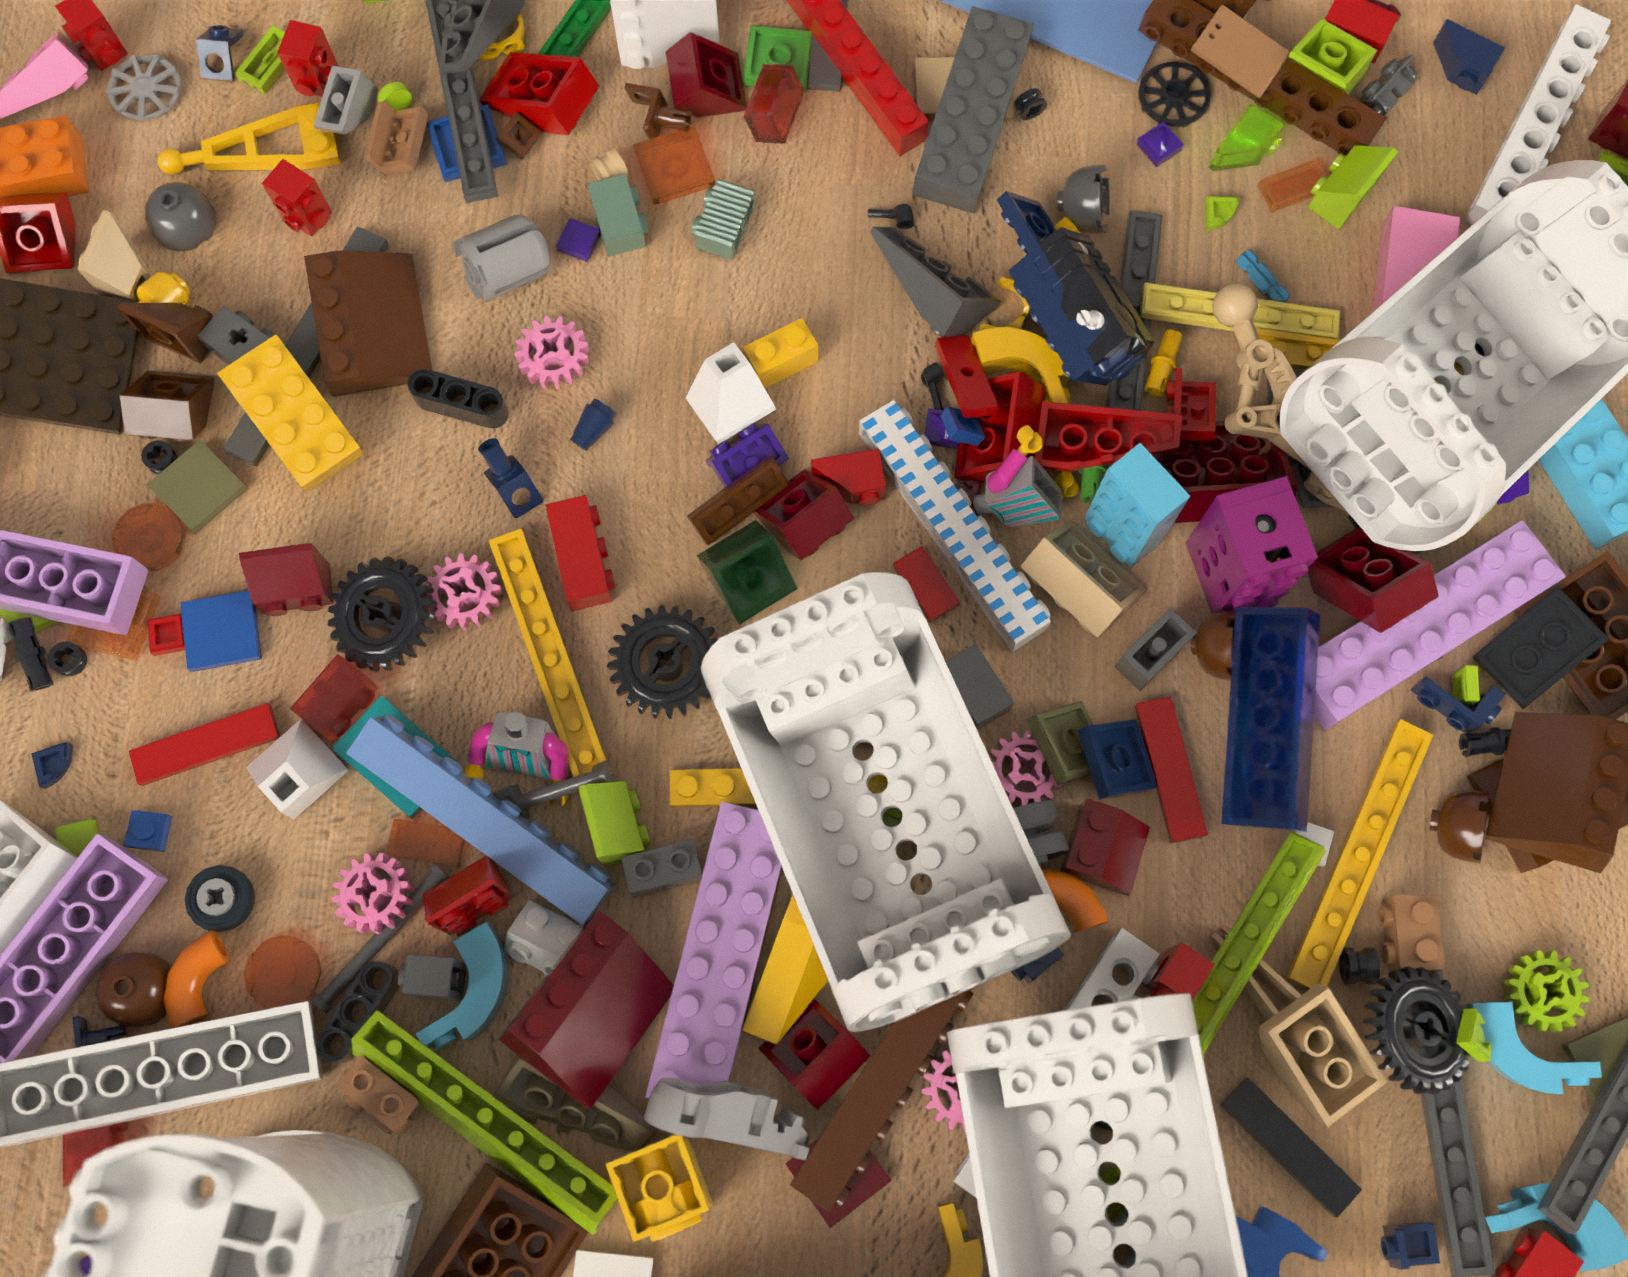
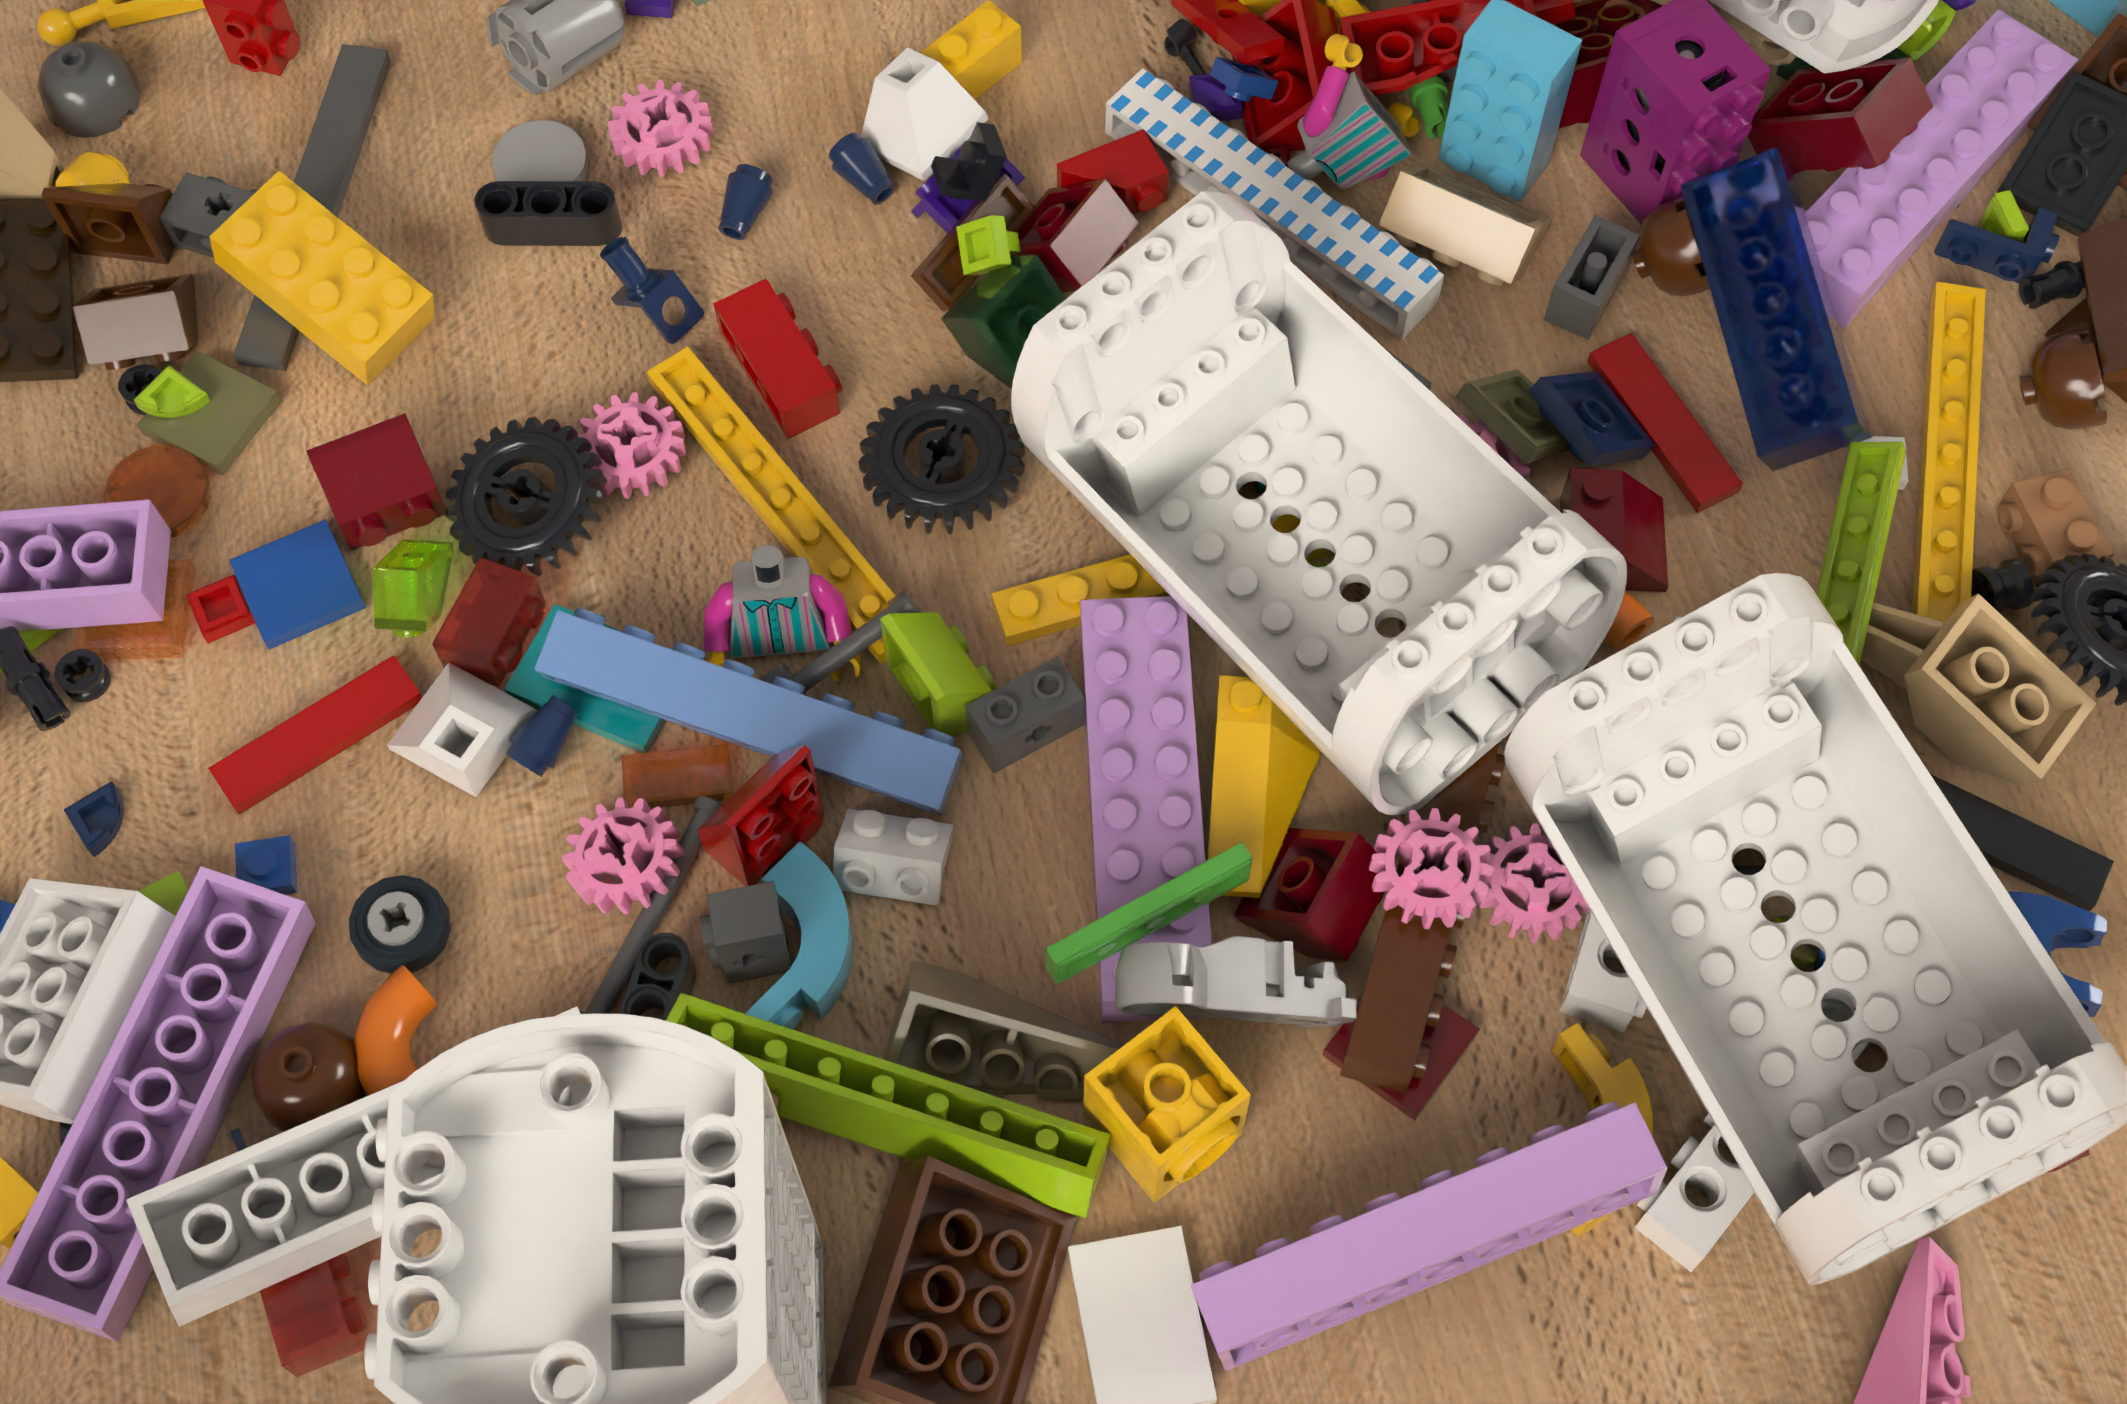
camera: 15 degrees left, 10 degrees down
(173, 471) = (171, 396): none -> lime tile
(282, 972) = (517, 988): clear orange tile -> none
(292, 655) = (411, 586): none -> clear neon green slope
(345, 792) = (543, 736): none -> dark blue cone
(367, 319) = (391, 146): reddish brown slope -> none
(466, 352) = (540, 153): none -> light grey tile
(589, 1010) = (986, 907): dark red slope -> none
(680, 420) = (861, 167): none -> dark blue cone
(688, 1053) = (1148, 913): none -> bright green tile
(742, 512) = (986, 245): none -> lime tile
(748, 454) = (976, 168): none -> black bracket
(881, 1055) = (1432, 890): none -> bright pink gear

